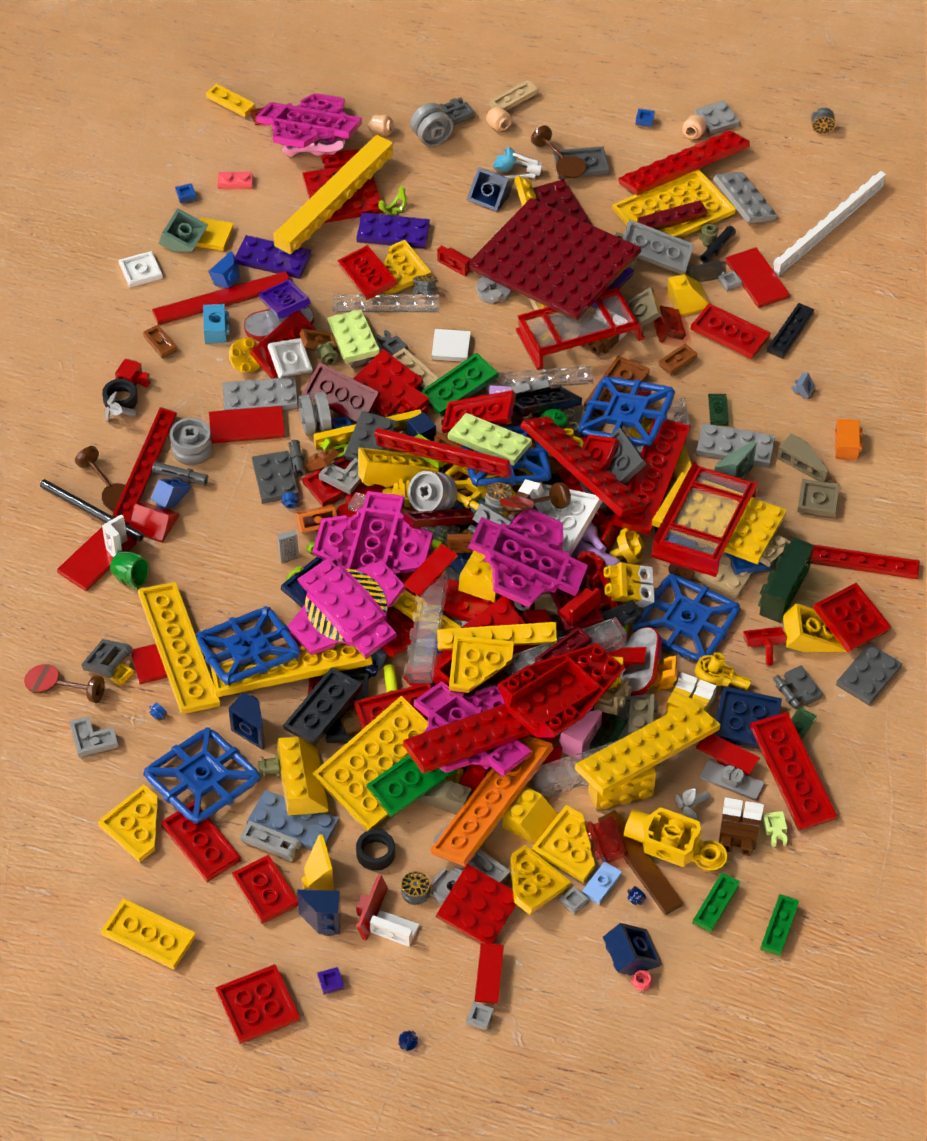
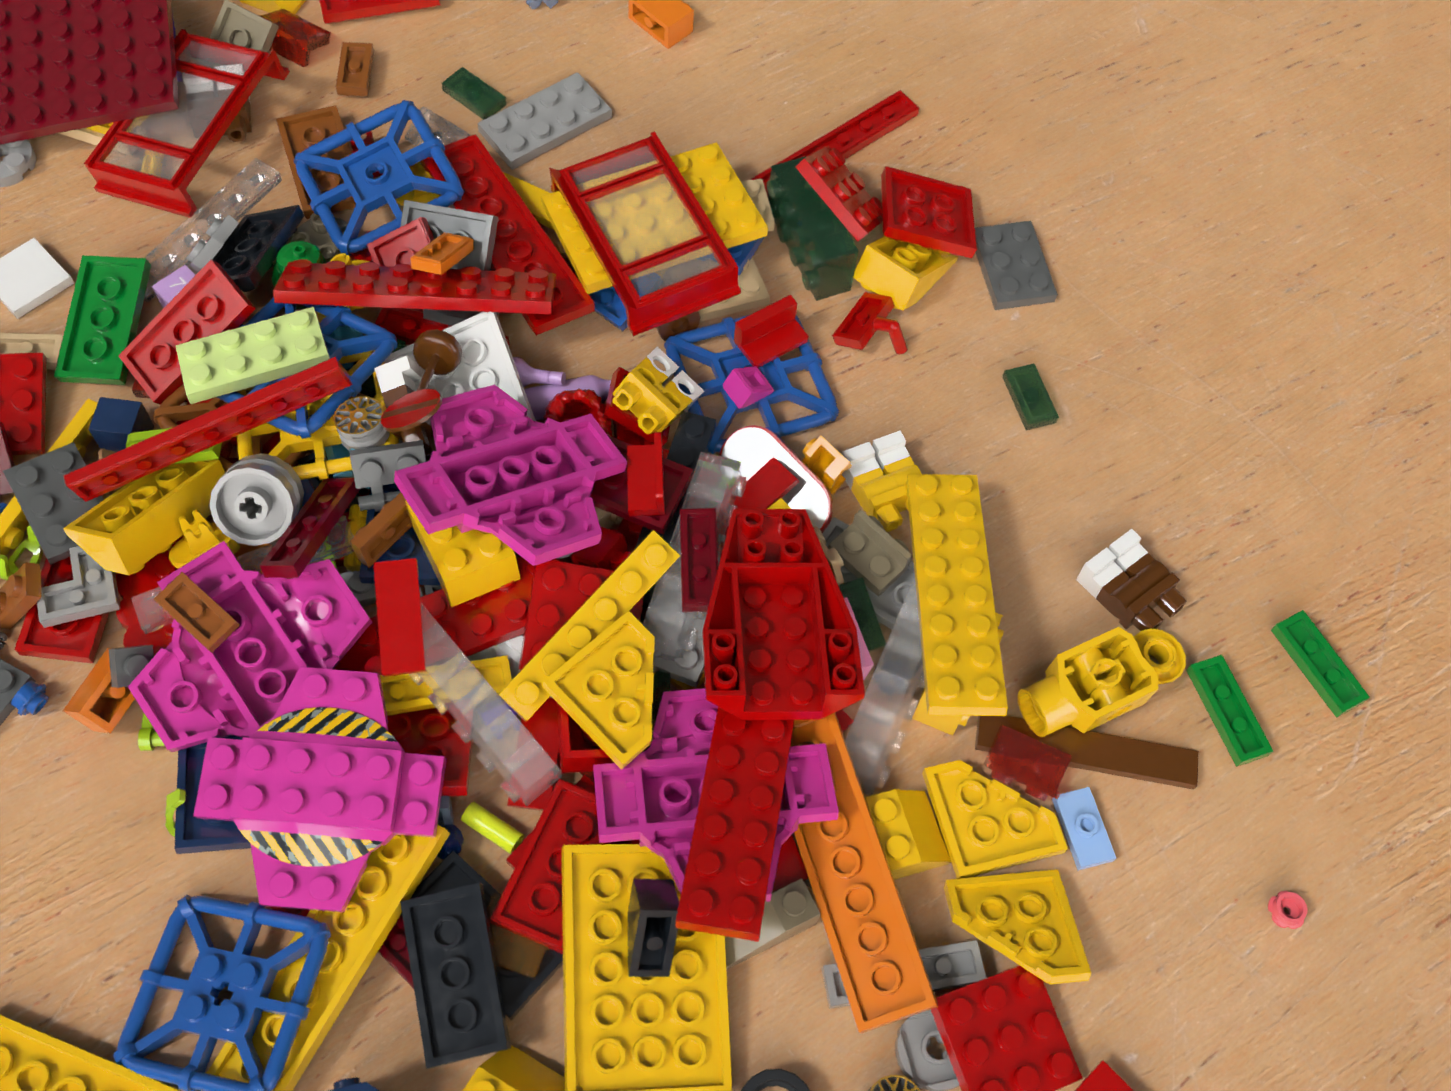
camera: 55 degrees left, 10 degrees up
(288, 546) = (112, 774): light grey tile -> none
(330, 510) = (128, 663): none -> dark grey plate
(368, 511) = (196, 612): none -> dark orange plate
(393, 750) = (652, 927): none -> black slope
(404, 785) = (710, 986): green plate -> none
(413, 401) = (63, 396): red brick -> none
(574, 900) = (1084, 889): light grey tile -> none
(606, 459) = (442, 253): none -> orange plate
(610, 532) = (527, 343): red piece -> none
(629, 546) = (586, 343): yellow pin -> none
(631, 949) = (1233, 884): dark blue slope -> none
(636, 896) = (1144, 802): clear blue plate -> none
(677, 617) = (747, 386): none -> dark pink slope
(690, 799) = (1050, 607): light grey plant -> none
(713, 604) = (770, 332): none -> red panel
(719, 672) = (876, 412): yellow pin -> none
(728, 753) = (1018, 501): red piece -> none
(732, 780) = (1042, 534): light grey piece -> none
(738, 462) = (583, 133): sand green slope -> none
(739, 710) = (969, 436): dark blue plate -> none
(776, 826) = (1162, 543): yellowish green plate -> none
(793, 771) = (1101, 455): red plate -> none
(801, 456) = (643, 73): dark tan slope -> none
(801, 683) = (967, 342): dark grey plate -> none
(813, 572) = (842, 191): none -> red plate
(818, 498) = (713, 106): dark tan plate -> none

